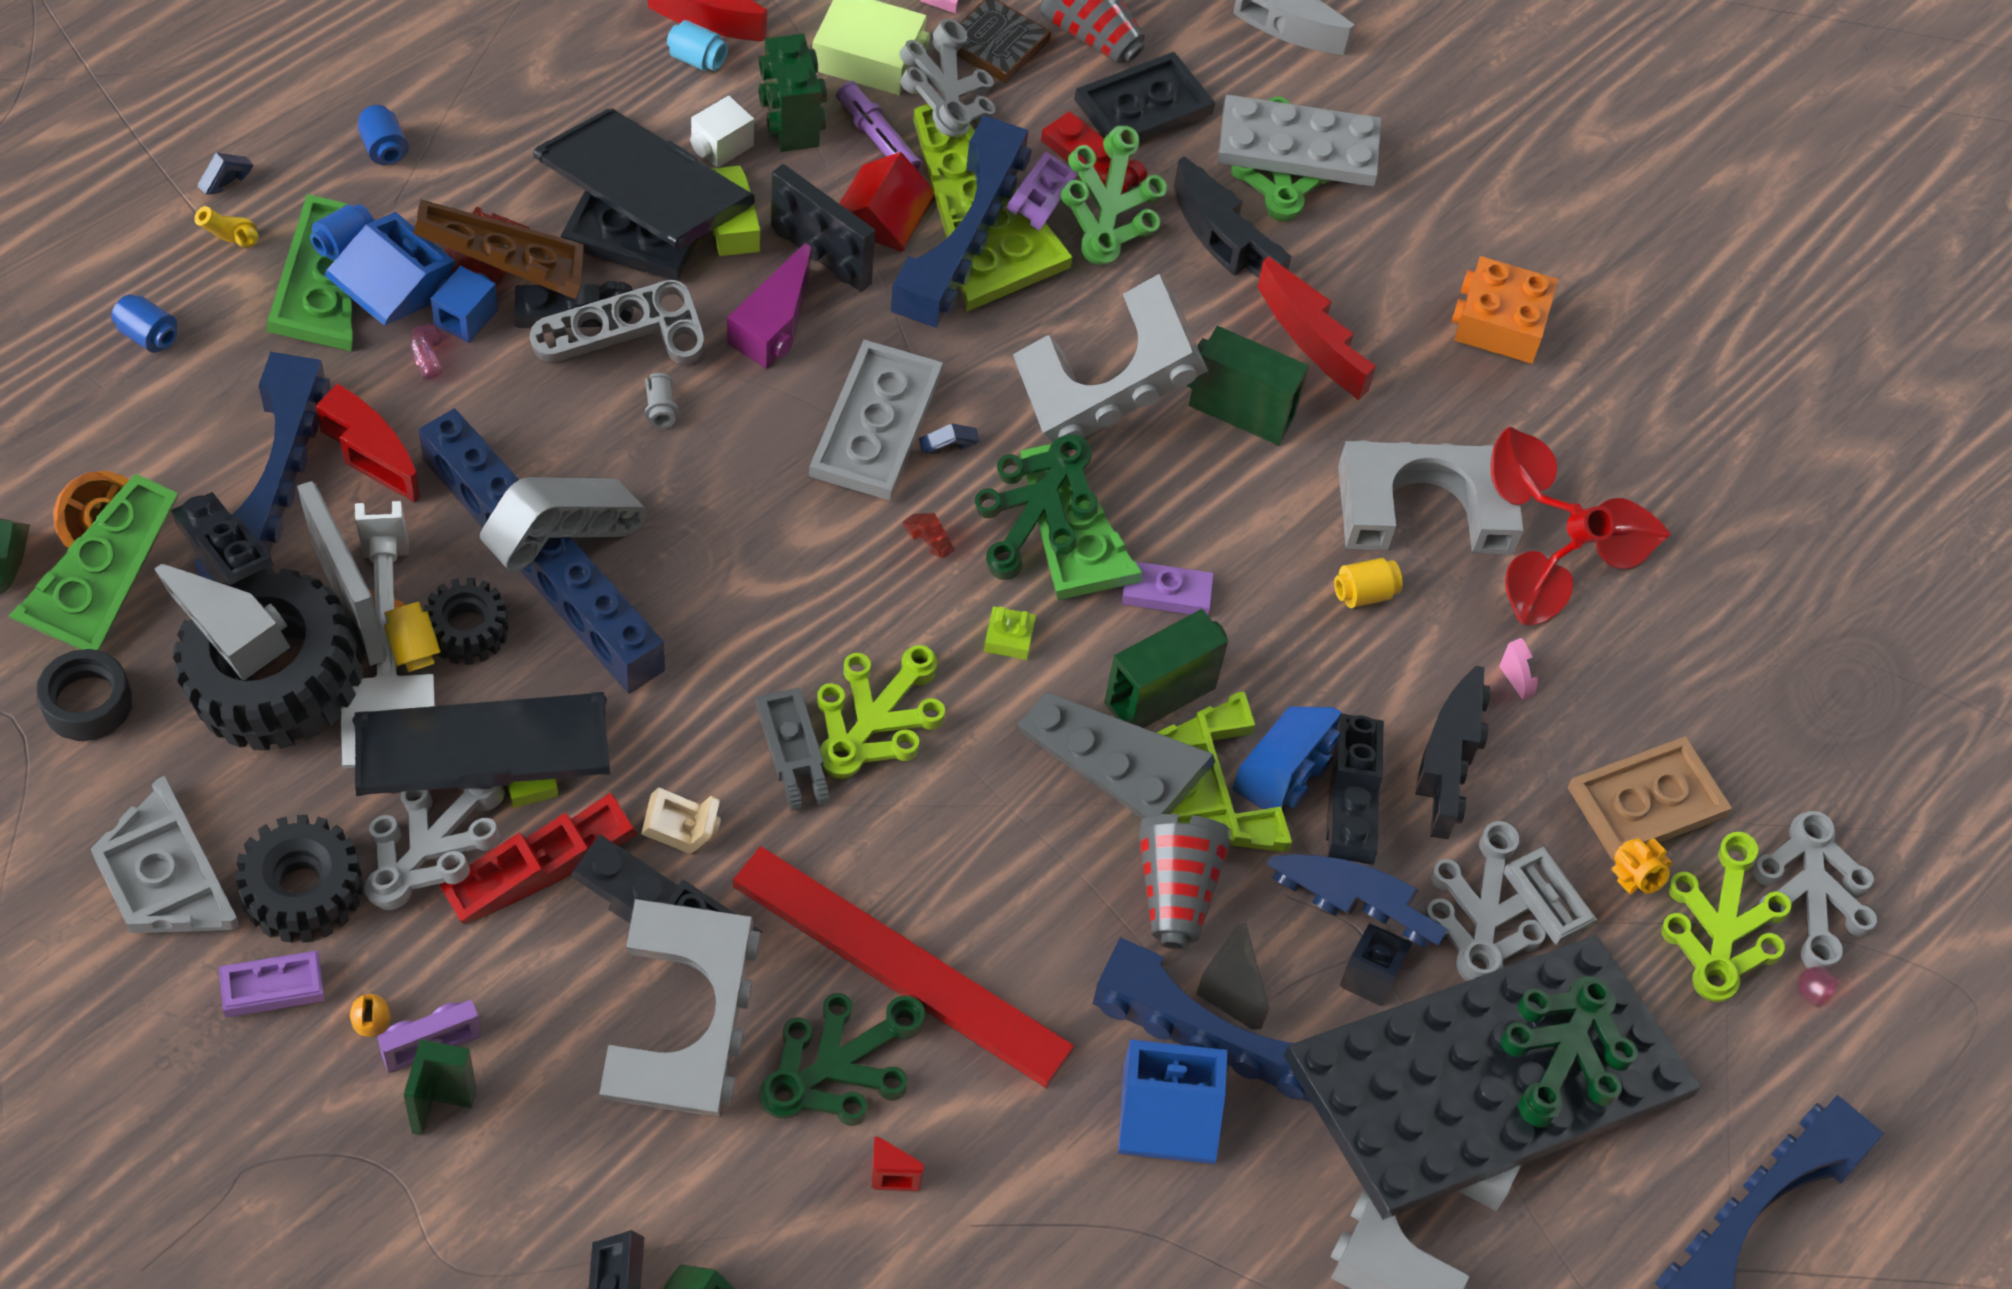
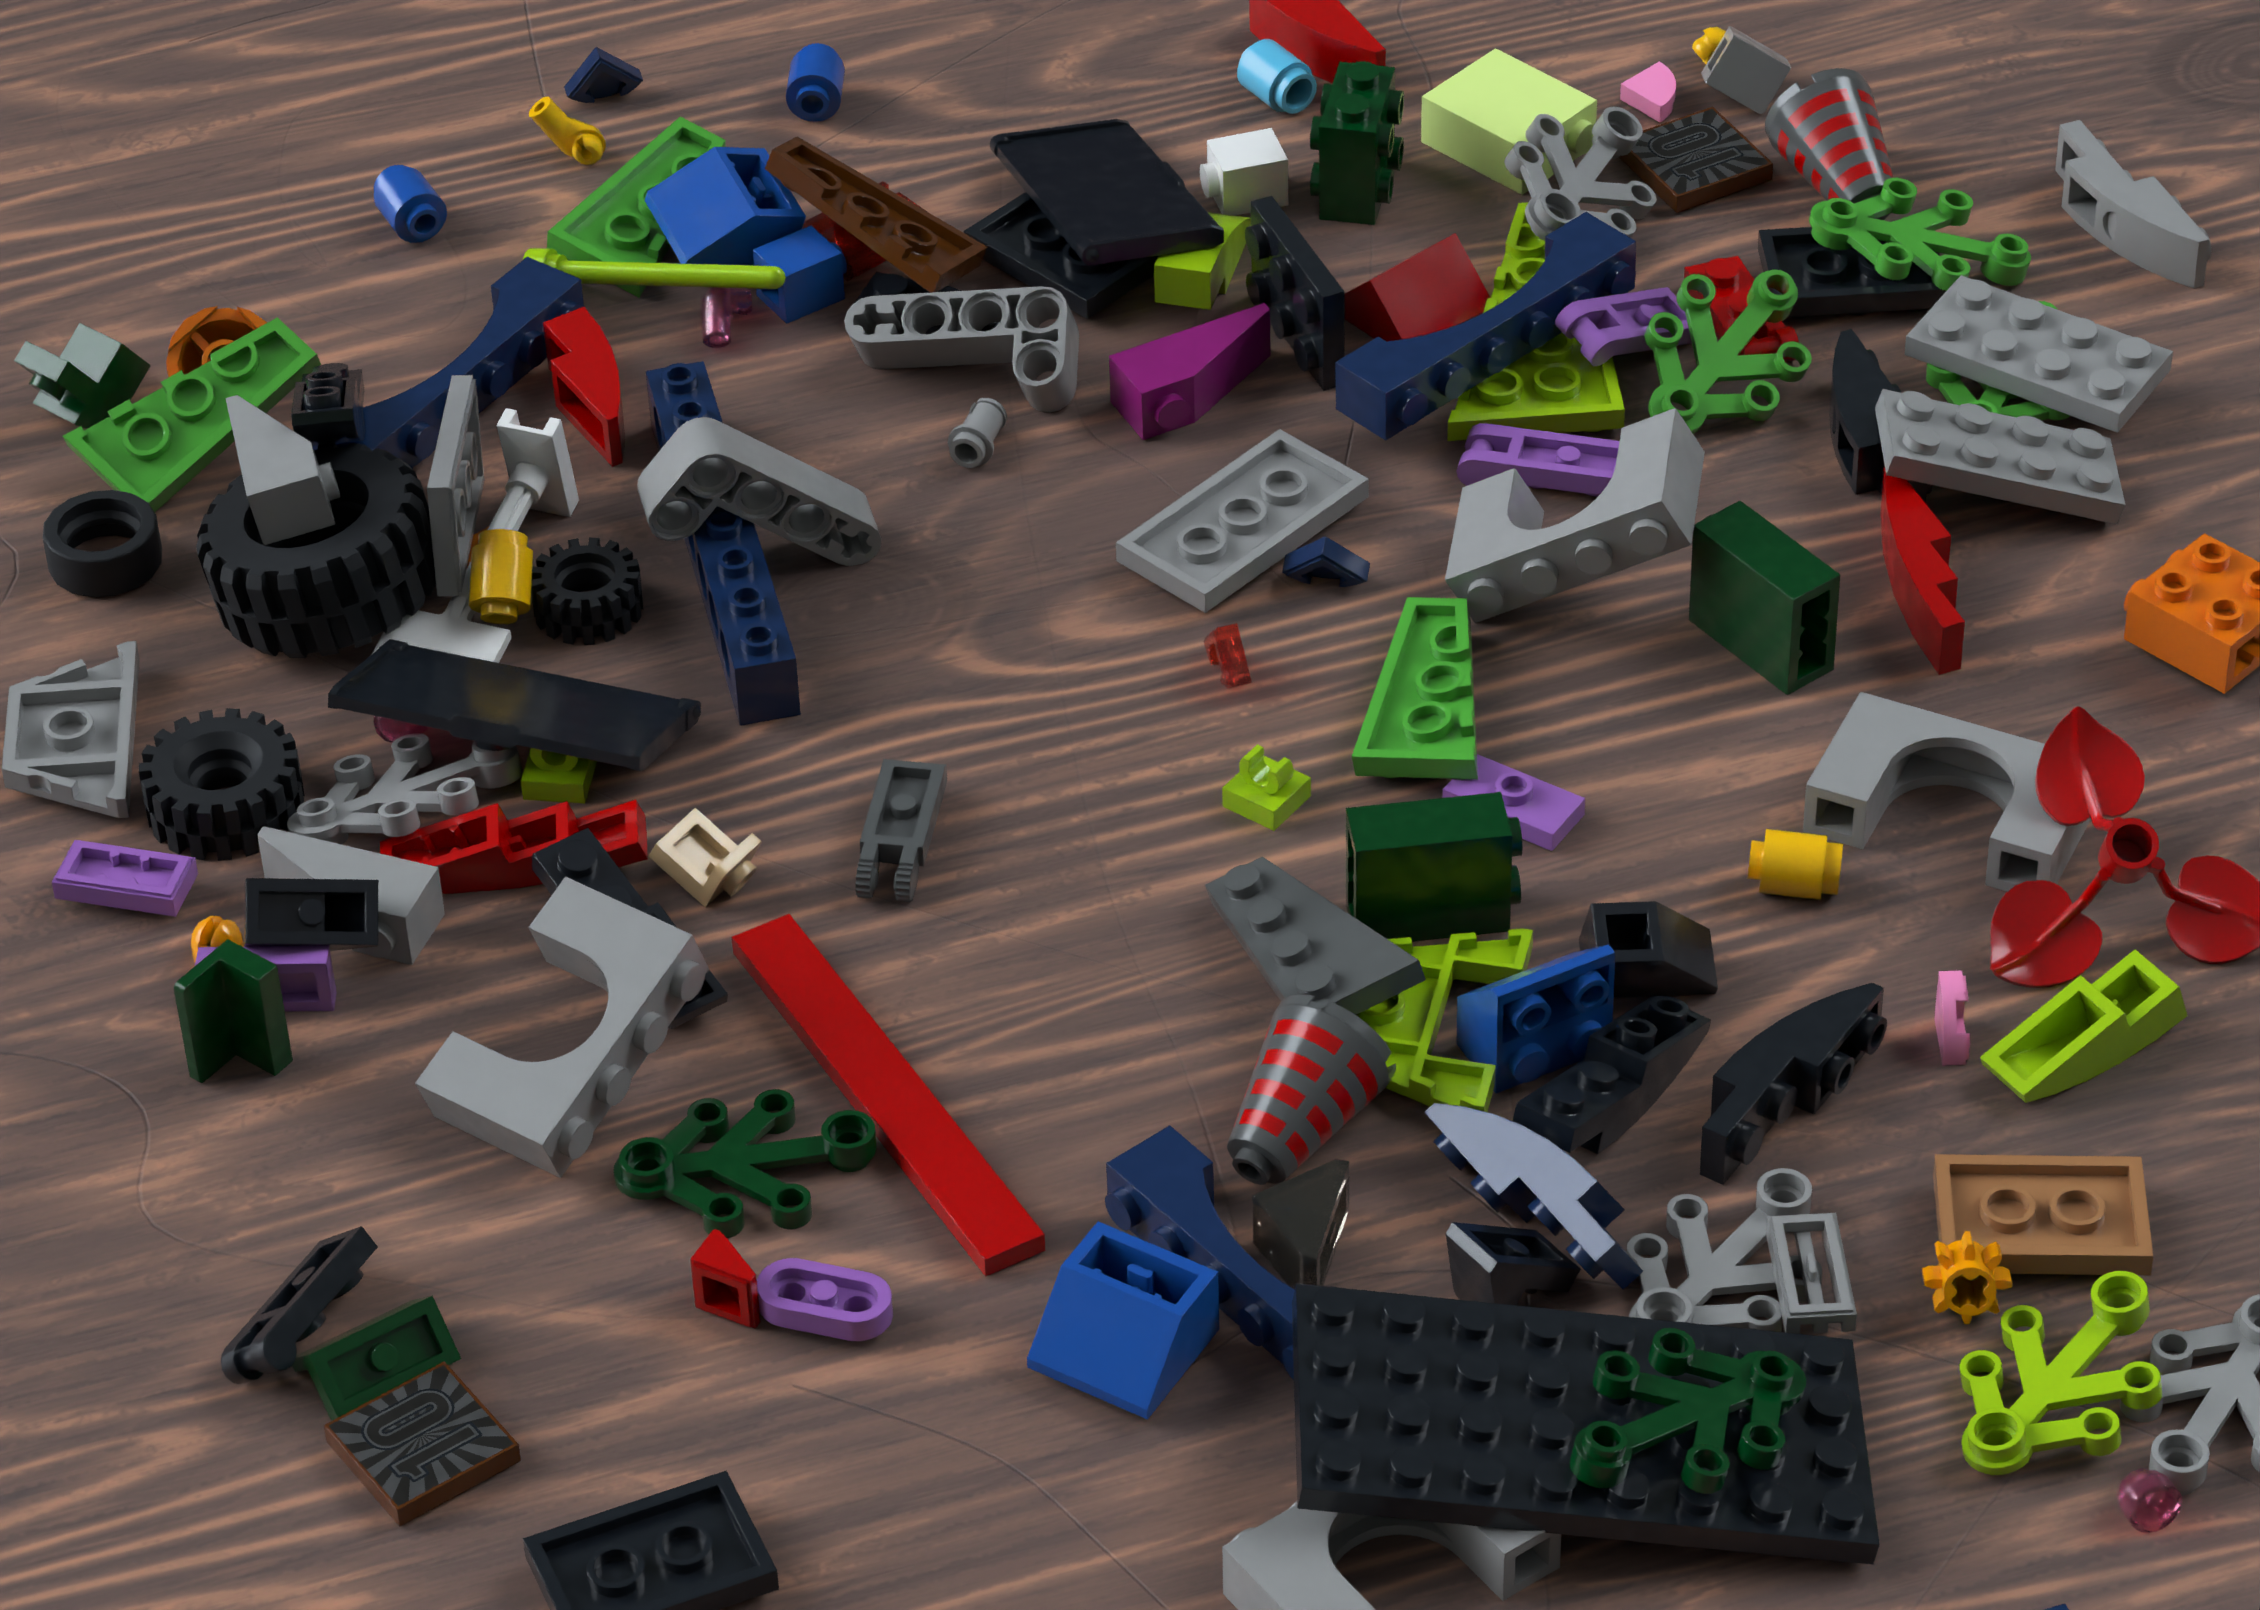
camera: 35 degrees right, 15 degrees down
(338, 229) = (682, 147): blue brick -> none
(366, 336) = (663, 273): none -> lime piece
(449, 980) = (311, 913): none -> black slope
(455, 940) = (407, 890): none -> light grey slope
(854, 101) = (1456, 206): medium lavender pin -> none
(877, 716) = (963, 852): lime plant -> none
(961, 1151) = (824, 1299): none -> medium lavender plate
(1039, 498) = (1452, 613): dark green plant -> none
(1040, 310) = (1539, 457): none -> medium lavender plate
(1131, 72) = (1846, 225): none -> bright green plant
(1320, 228) = (1999, 455): none -> light grey plate
(1322, 684) = (1653, 949): none -> black slope
(1599, 650) = (2087, 1029): none -> lime slope

